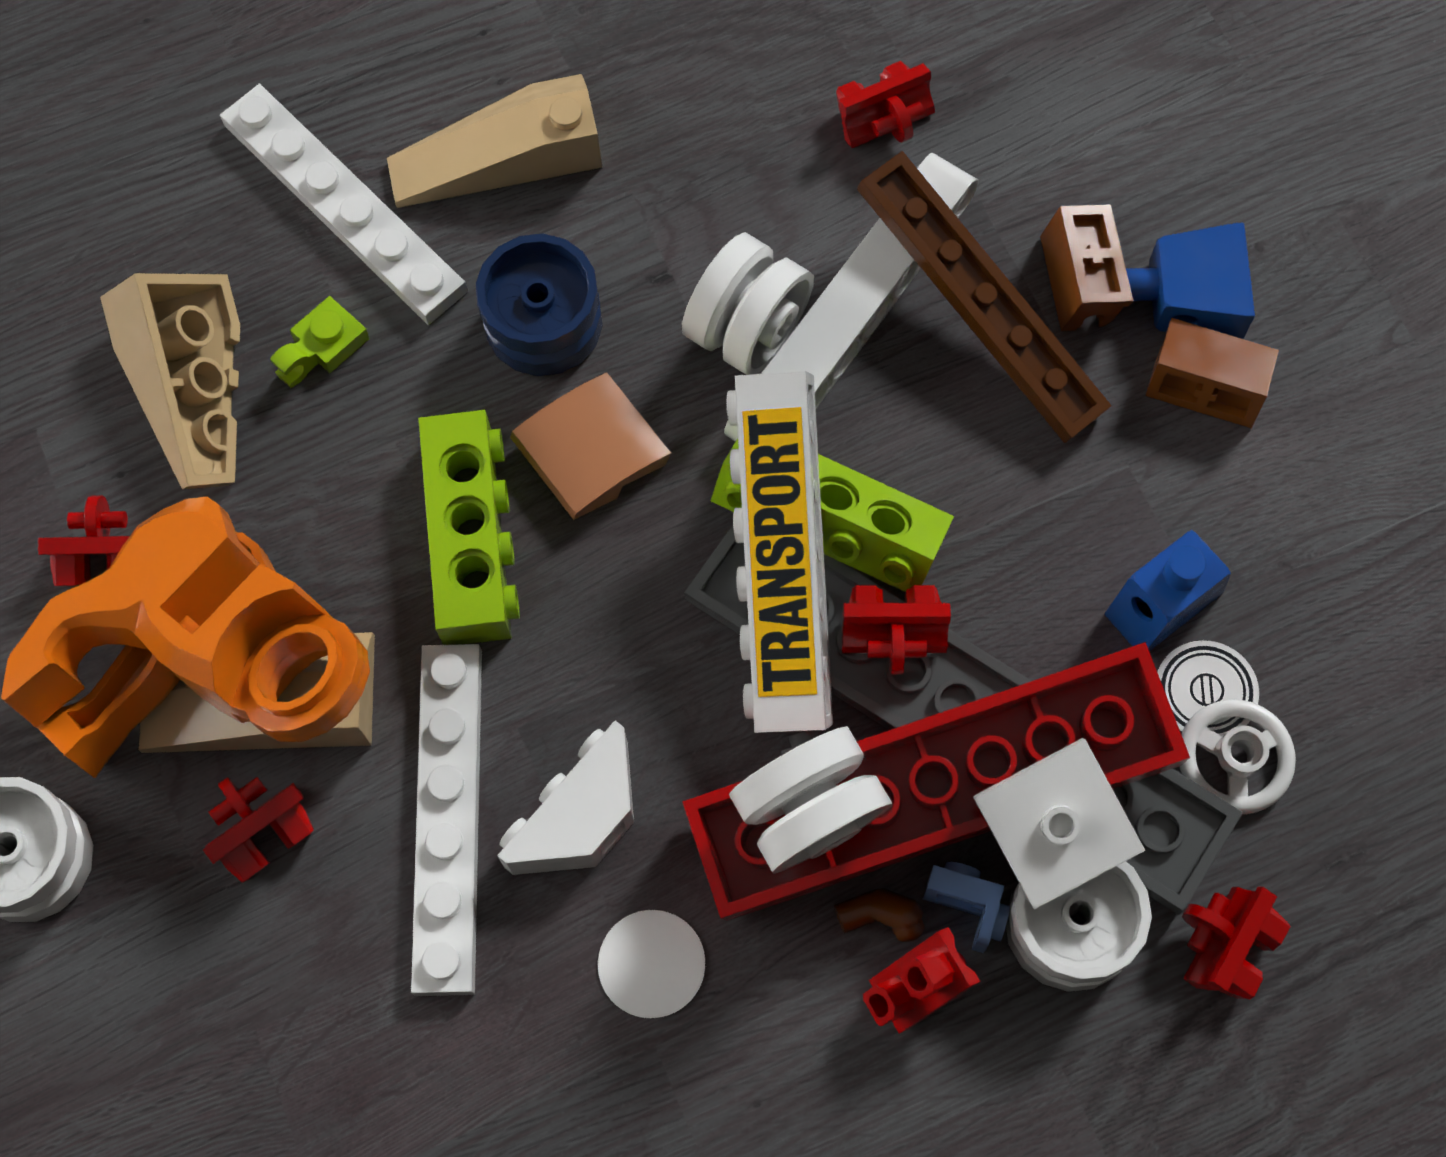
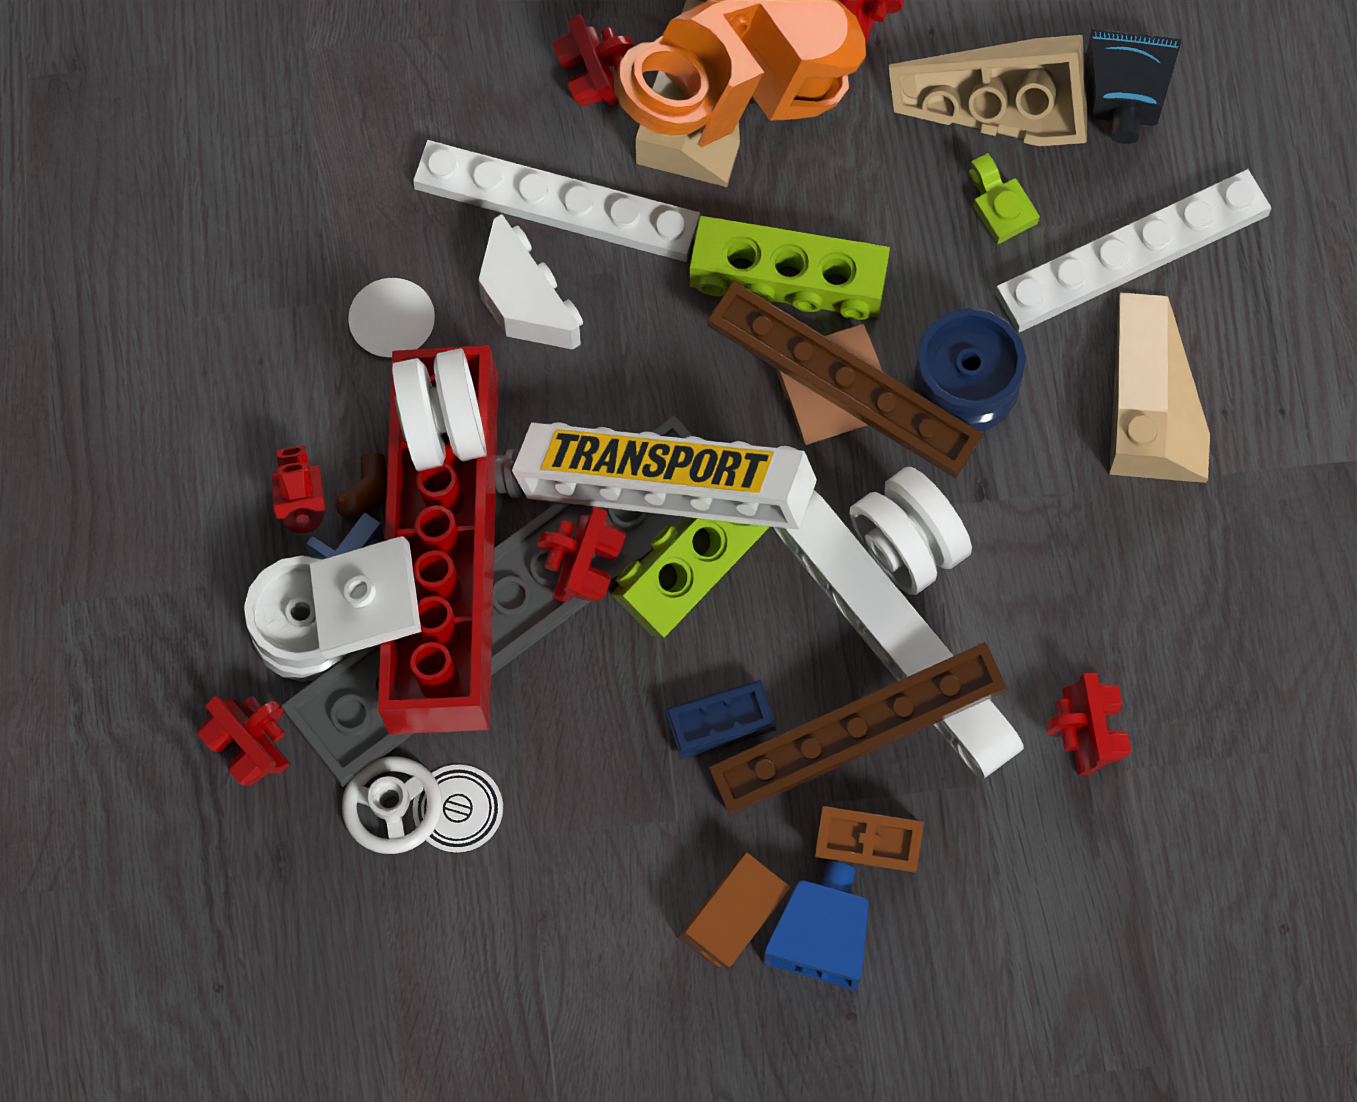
camera: 105 degrees right, 0 degrees up
(140, 237) = (1129, 79): none -> black torso
(590, 425) = (844, 379): none -> reddish brown plate
(1011, 447) = (720, 719): none -> dark blue plate
(1175, 588) = (544, 794): blue torso -> none

